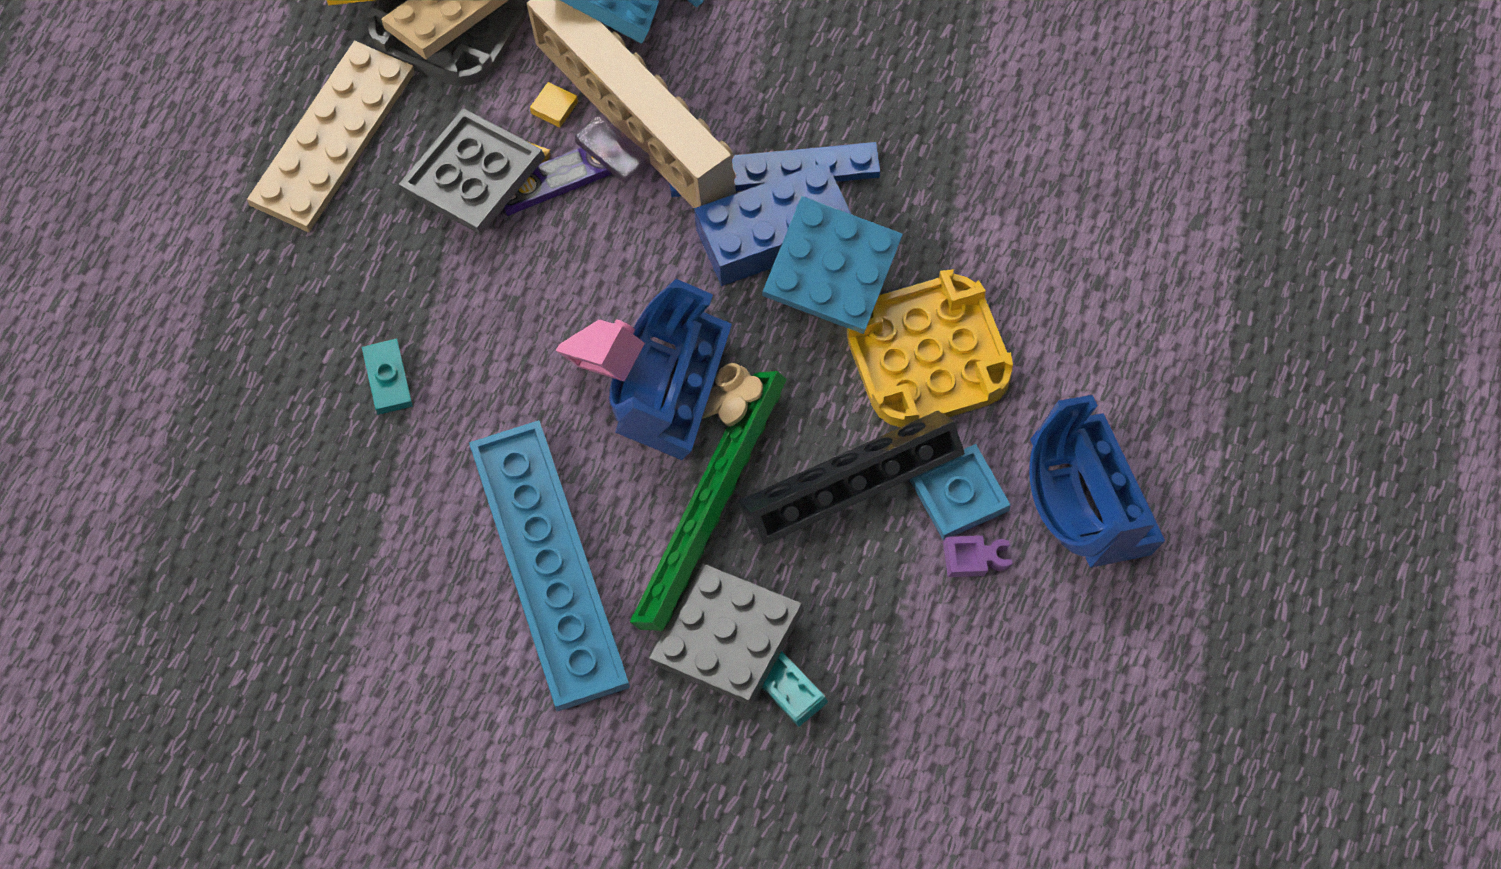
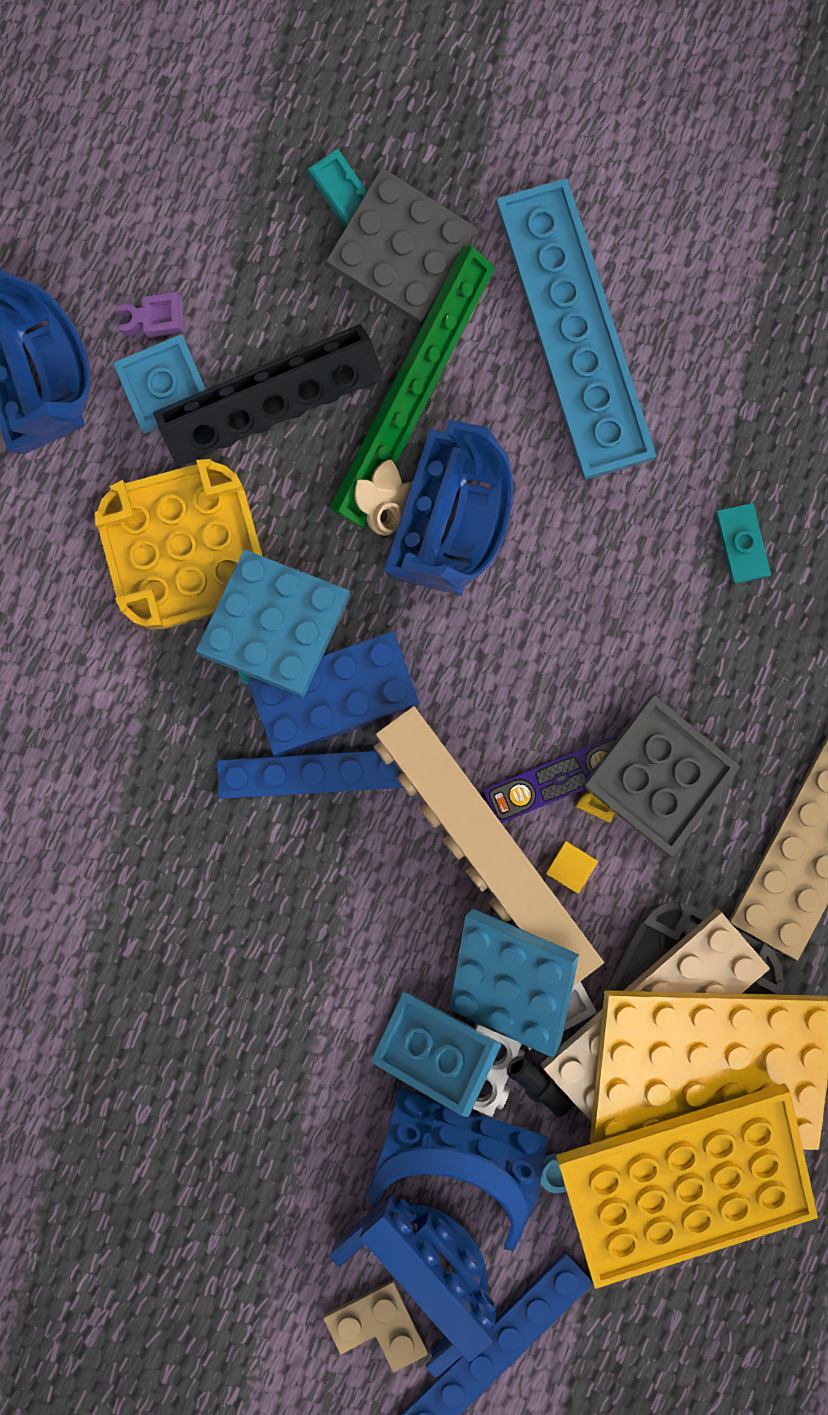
camera: 175 degrees right, 20 degrees up
(604, 348) = (517, 536): bright pink slope -> none
(612, 149) = (507, 792): clear purple plate -> none

